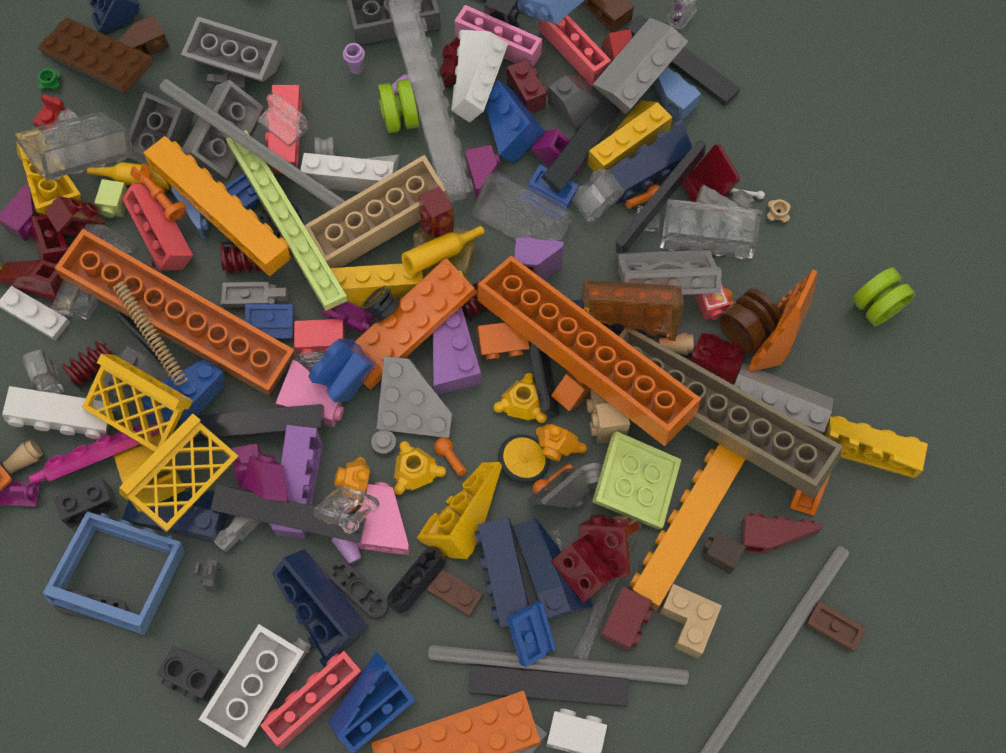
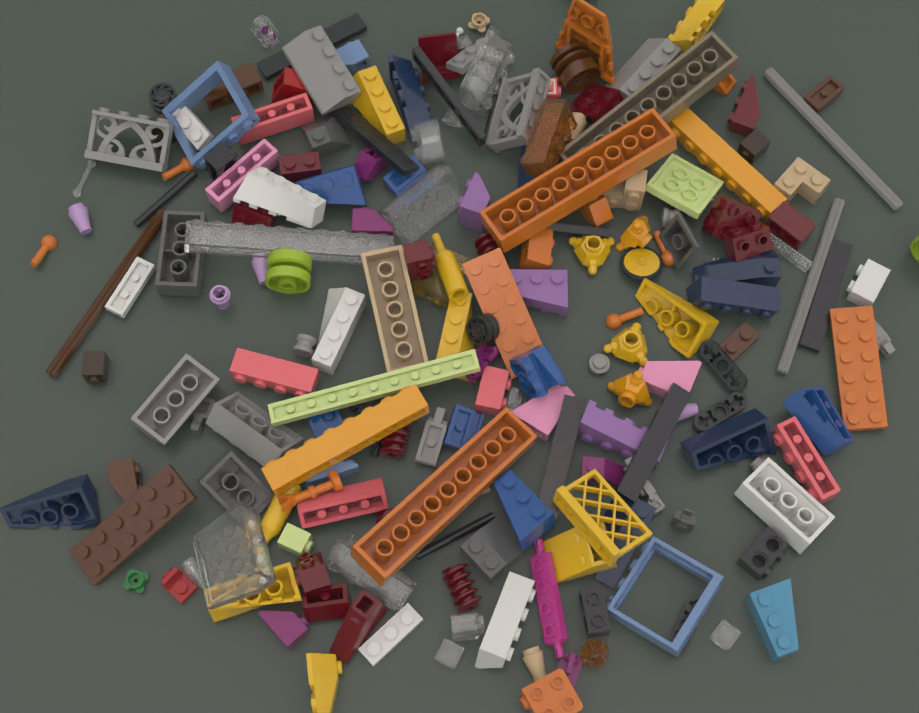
camera: 75 degrees left, 0 degrees up
(15, 372) = (449, 654): none -> clear plate
(39, 513) = (594, 653): none -> clear orange gear
(89, 653) = (725, 635): none -> clear plate
(112, 703) = (775, 618): none -> dark azure wedge
(130, 300) = (467, 513): tan piece -> none
(140, 382) = (513, 527): yellow fence -> none
(251, 144) = (290, 399): light grey axle -> none
(266, 478) = (621, 450): magenta slope -> none
(283, 120) = (275, 366): clear panel -> none
(340, 503) = (660, 398): clear plate -> none
(410, 401) = (573, 332): light grey plate -> none
(531, 633) = (790, 290): blue plate -> none
(643, 198) = (434, 105): orange bar -> none

